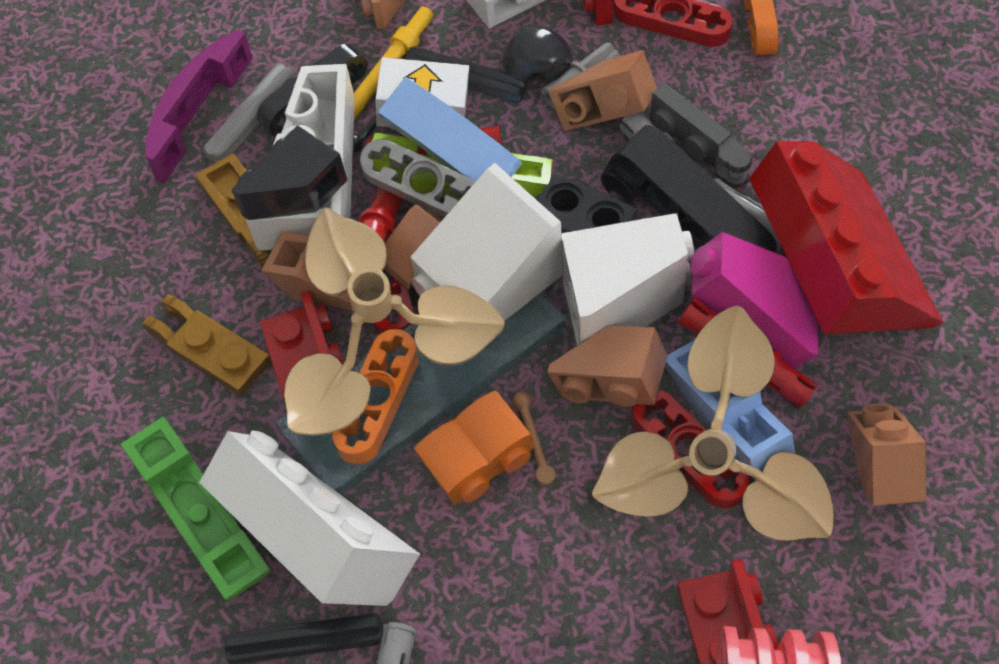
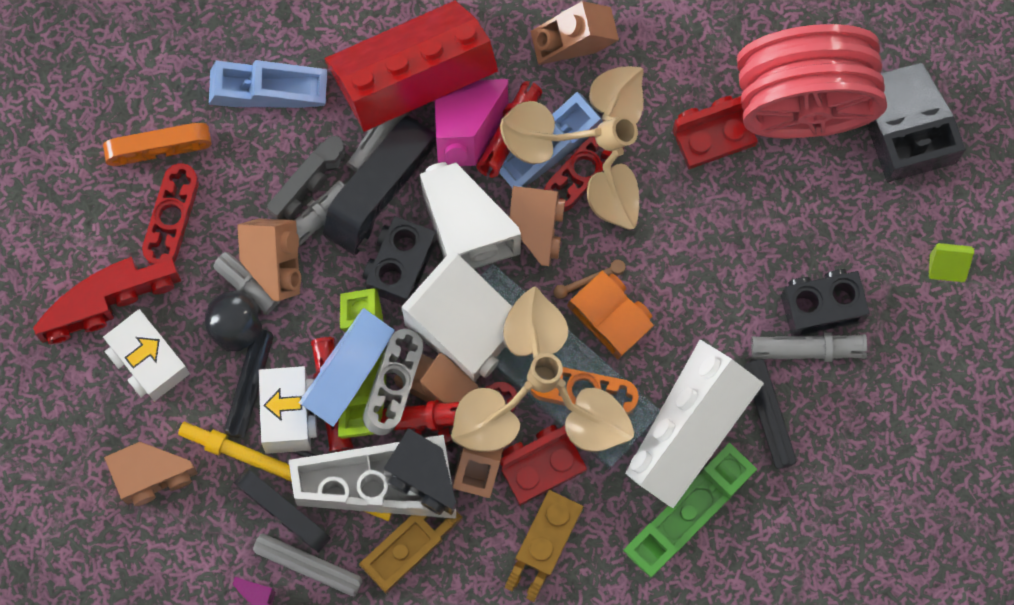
camera: 105 degrees left, 15 degrees up
(828, 97) = (267, 85): none -> light blue slope

